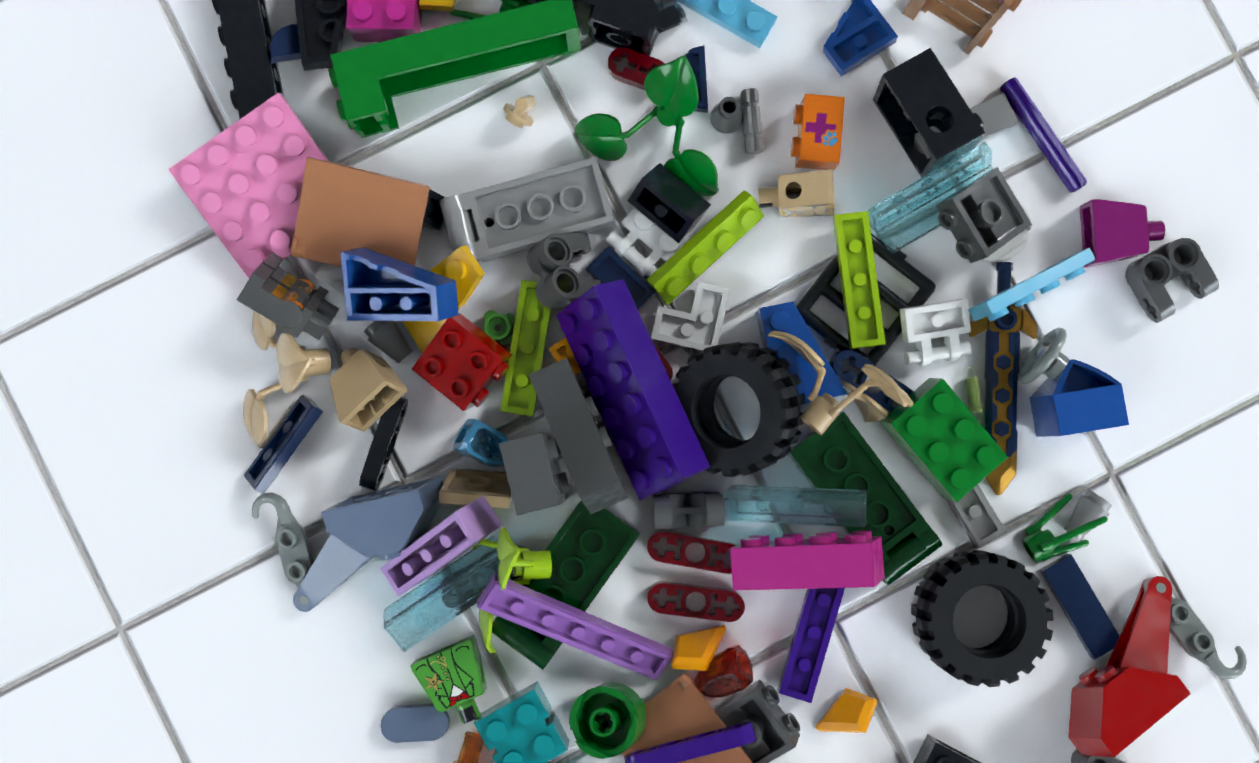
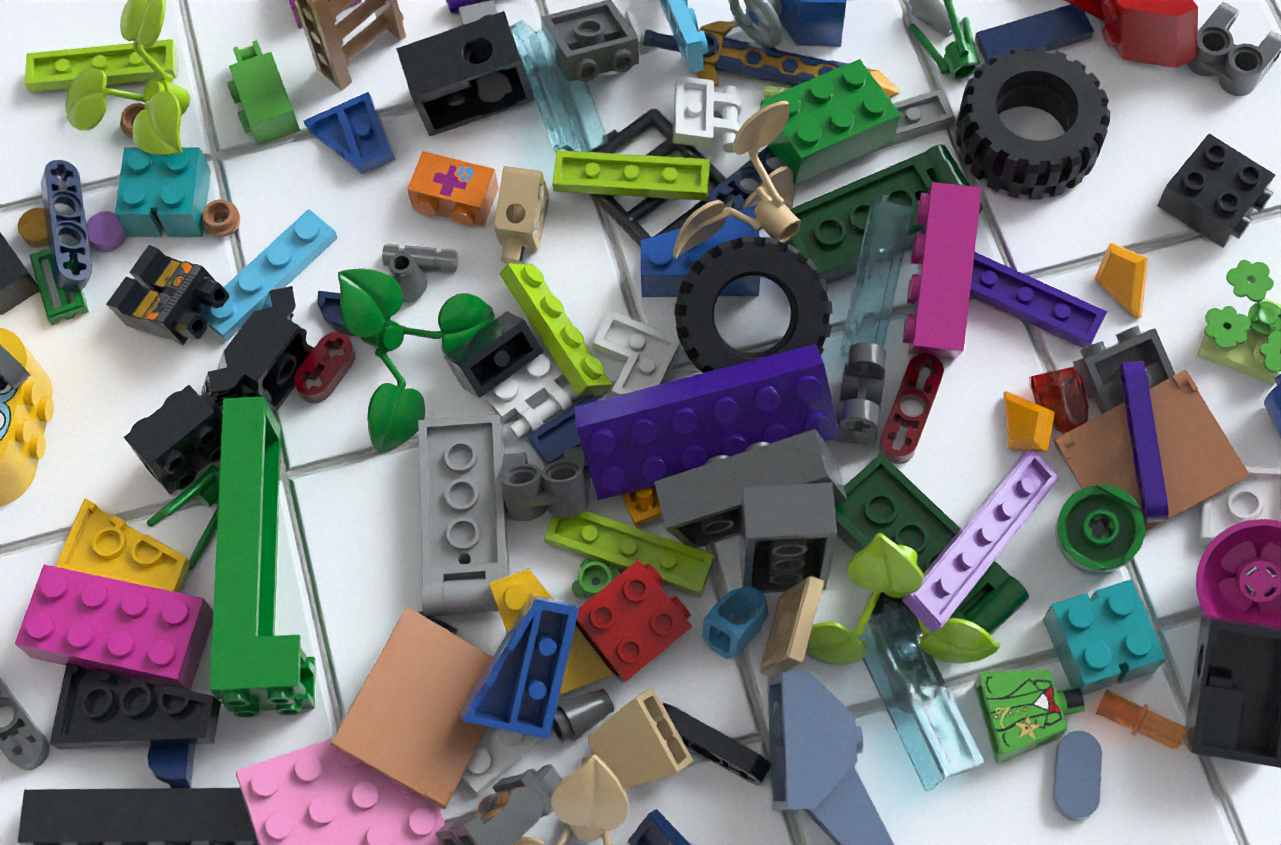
camera: 75 degrees left, 20 degrees down
(441, 545) = (858, 671): lavender brick -> none
(518, 114) = (340, 508): tan plate -> none
(669, 606) = (972, 433): dark red beam -> none

